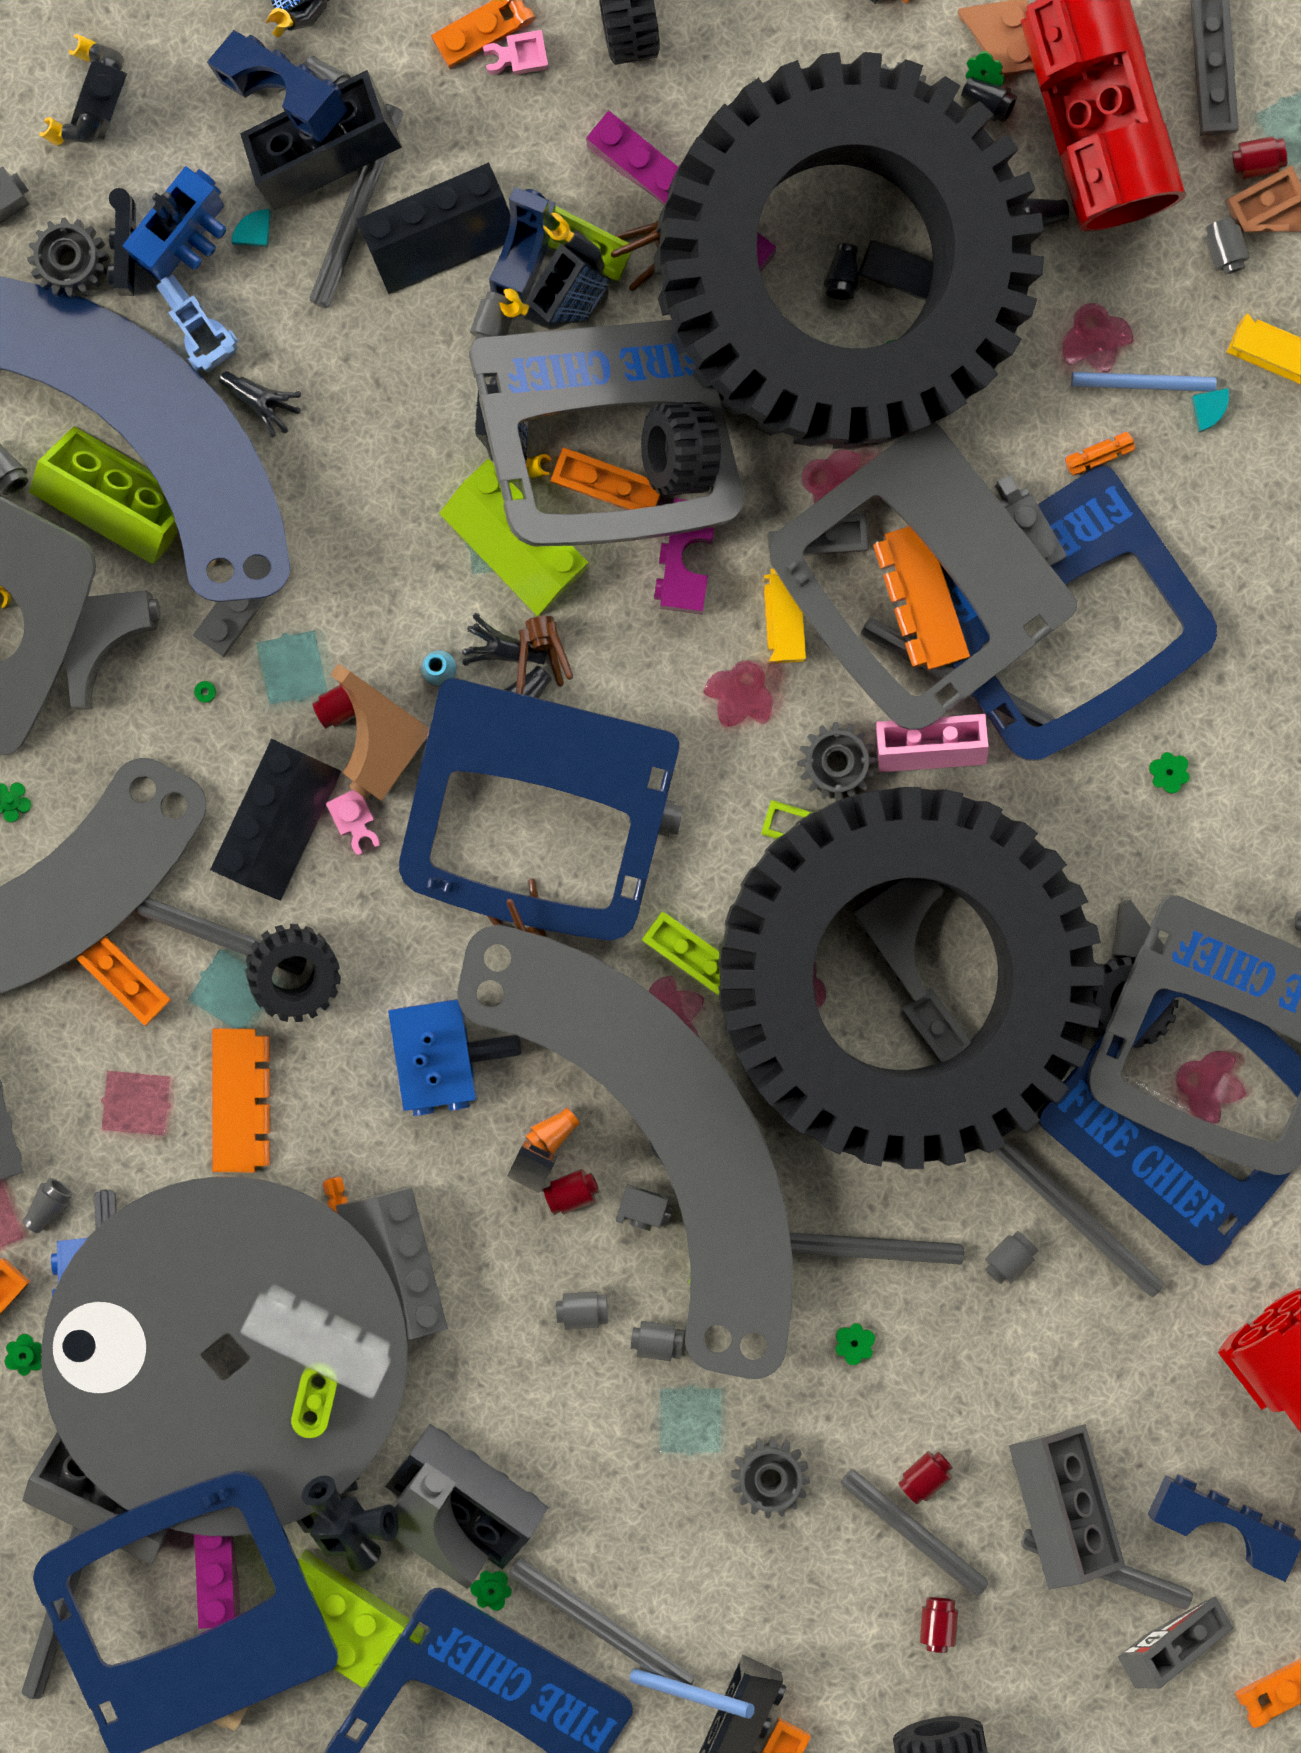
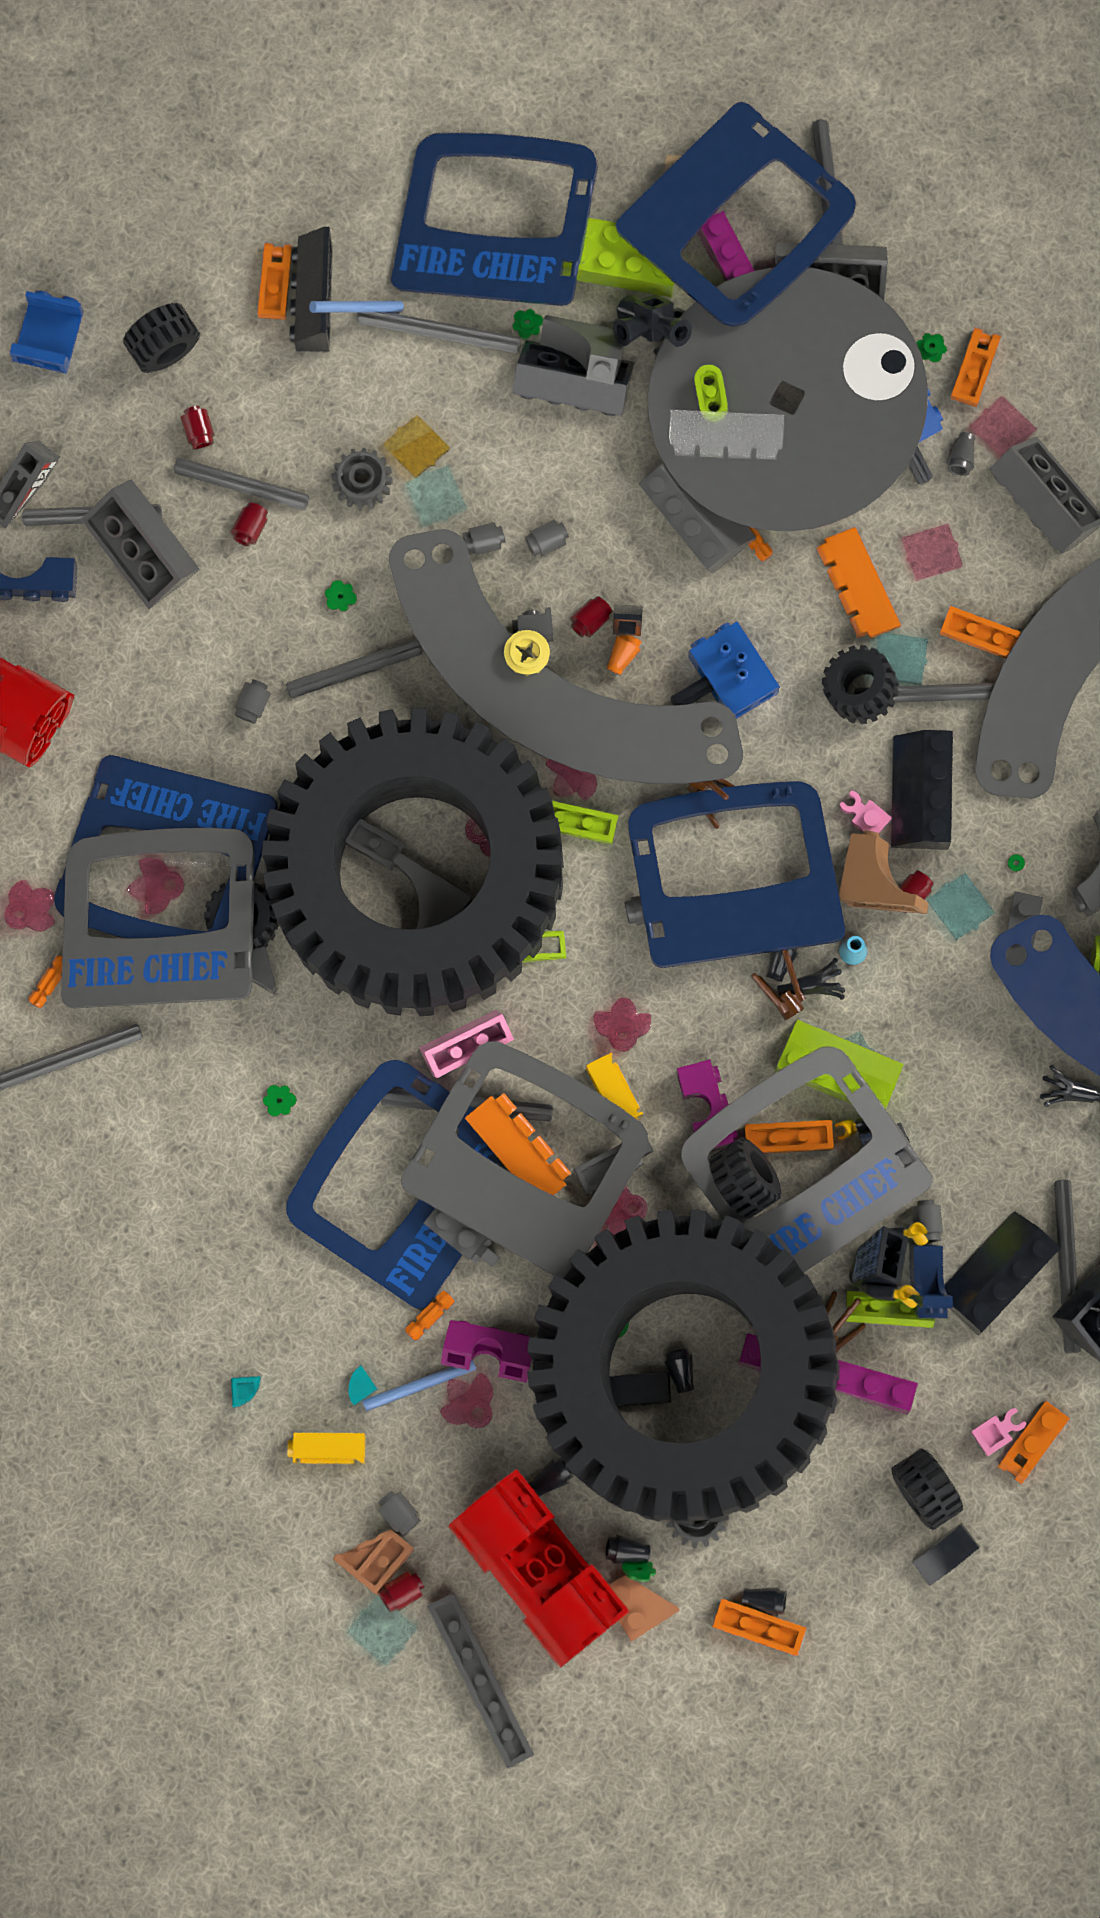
camera: 160 degrees right, 10 degrees down
(668, 1190) = (523, 640): none -> light yellow gear
(688, 1491) = (416, 446): none -> clear yellow piece
(846, 744) = (530, 987): dark grey gear -> none
(1072, 404) = (467, 1341): none -> magenta arch
(1080, 1218) = (212, 750): dark grey axle -> none

